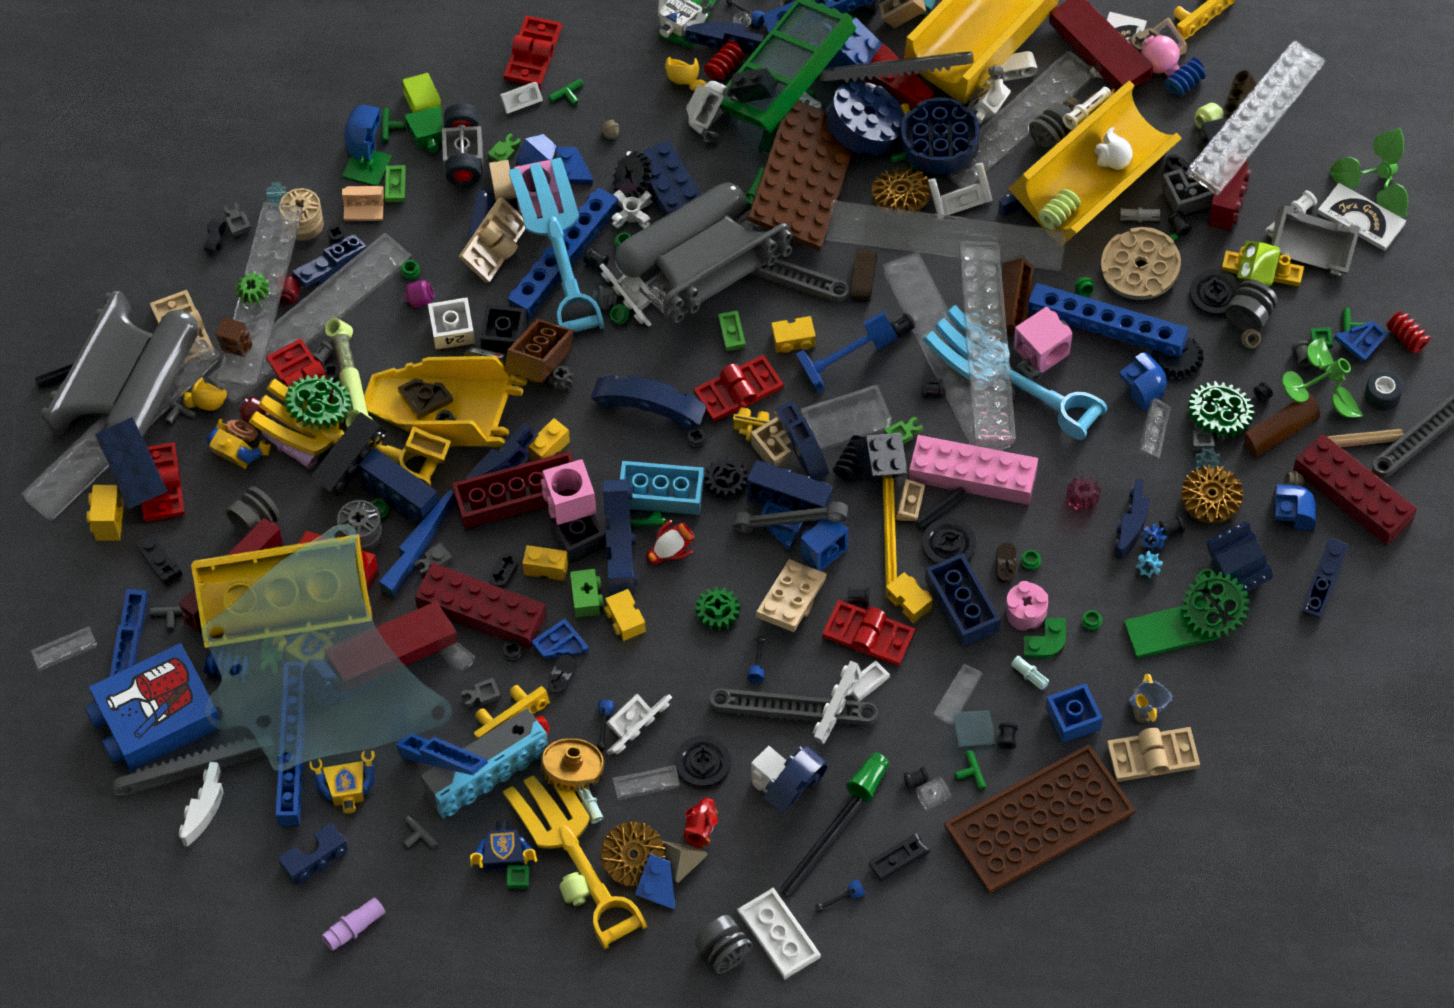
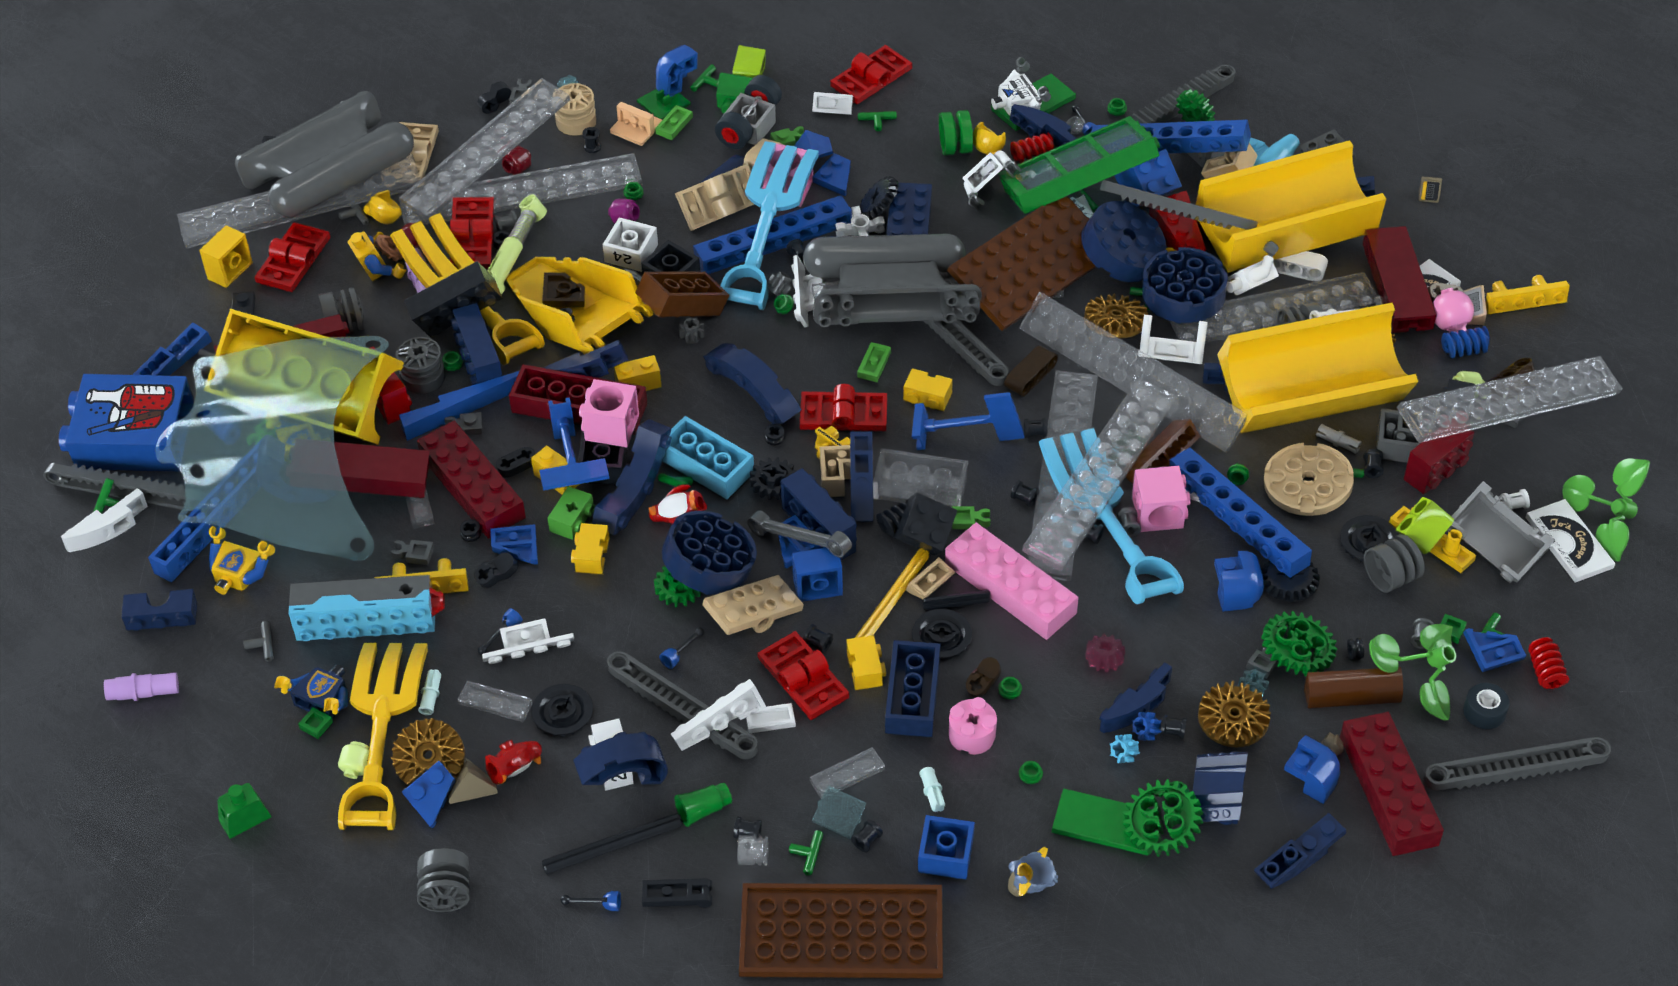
camera: 30 degrees right, 10 degrees down
(64, 648) = (107, 345): clear plate -> none
(131, 462) = (268, 221): dark blue brick -> none
(186, 786) = (104, 498): none -> green piece
(234, 337) = (430, 165): reddish brown brick -> none
(259, 291) = (478, 137): bright green gear -> none
(318, 409) = (462, 246): green gear -> none
(330, 262) = (560, 156): dark blue slope -> none
(427, 445) = (524, 323): yellow brick -> none
(440, 754) = (320, 574): blue slope -> none
(522, 975) = (241, 809): none -> green torso
(570, 559) = (573, 472): none -> blue piece
(572, 764) = (438, 648): pearl gold wheel -> none
(610, 129) = (890, 158): dark tan plate -> none
(652, 78) = (955, 133): none -> green wheel
(730, 570) = (708, 552): none -> dark blue brick
(753, 85) = (1031, 164): black brick -> none
(778, 933) = (509, 903): white tile -> none
(1046, 646) = (972, 774): green plate -> none
(1059, 209) = (1252, 387): yellowish green piece -> none
(1114, 152) = (1340, 363): white hair -> none
(1153, 753) = (1001, 929): tan plate -> none
(1155, 429) = (1219, 630): clear plate -> none
(1255, 341) = (1376, 602): dark tan plate -> none
(1367, 438) = (1436, 742): tan axle -> none

